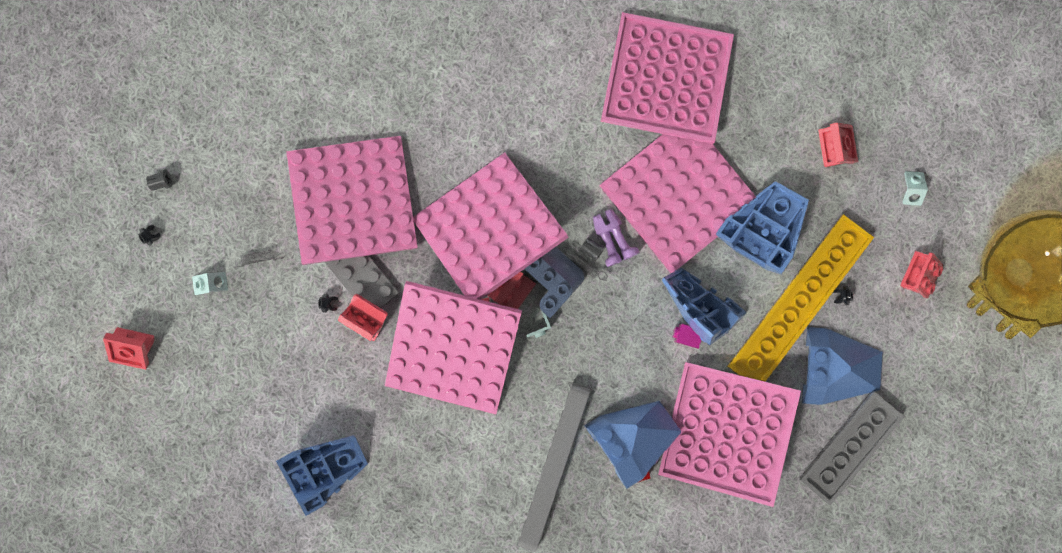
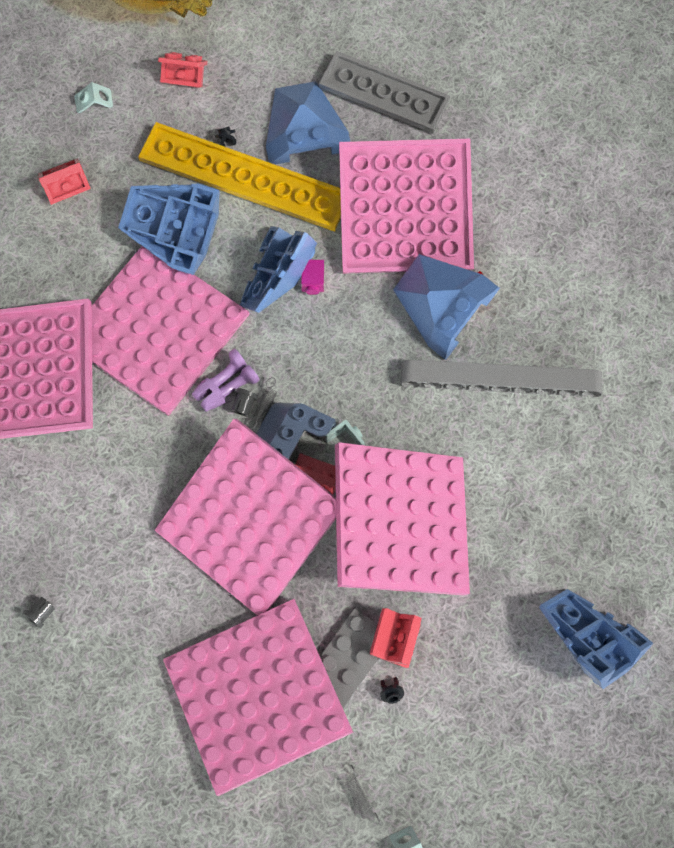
camera: 105 degrees left, 15 degrees down
(463, 49) = (39, 612): none -> dark grey bush

